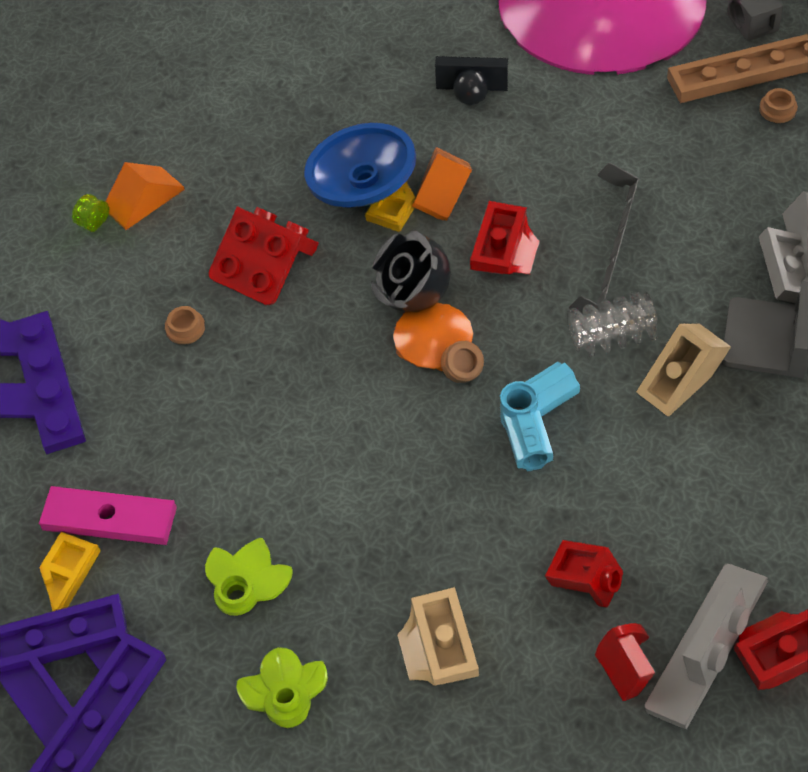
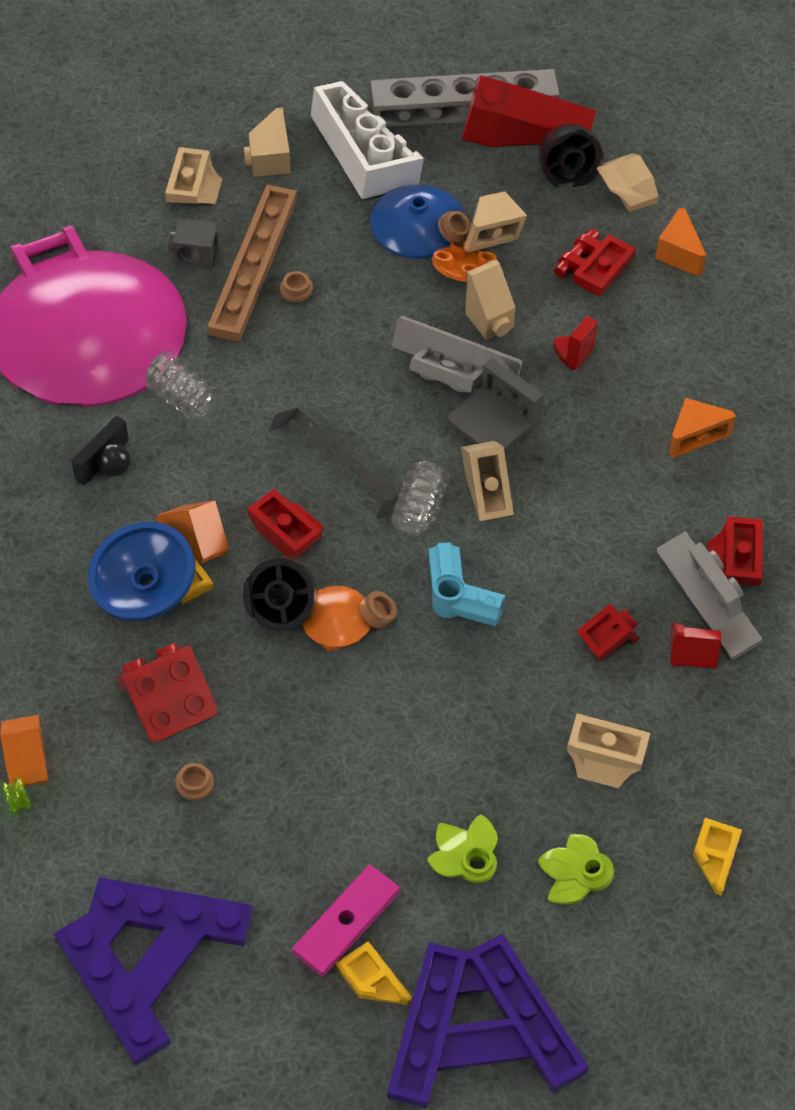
camera: 65 degrees left, 0 degrees up
(586, 86) = (182, 386): none -> clear piece

